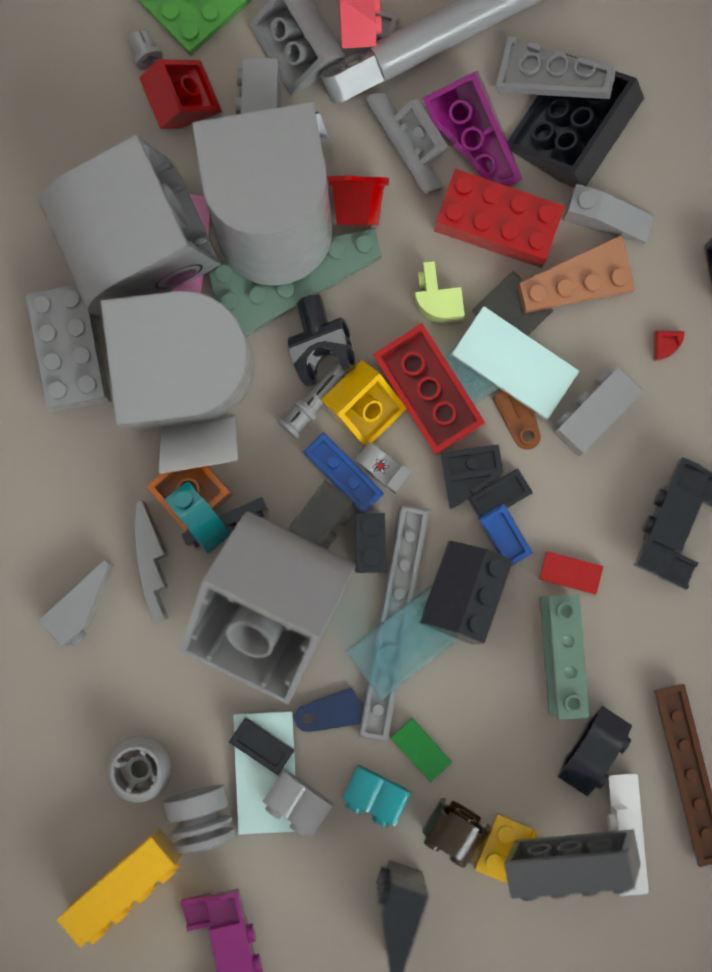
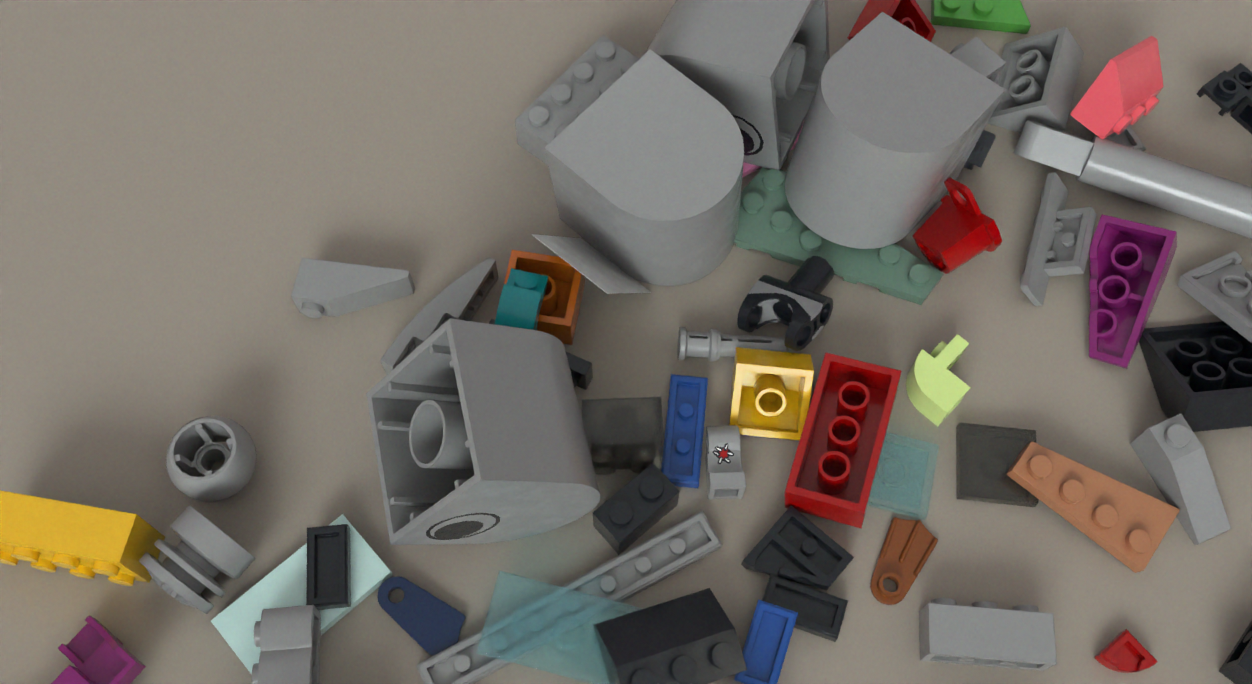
camera: 50 degrees right, 20 degrees down
(499, 218) = (1070, 375): red brick -> none
(515, 363) = (950, 507): light aqua tile -> none

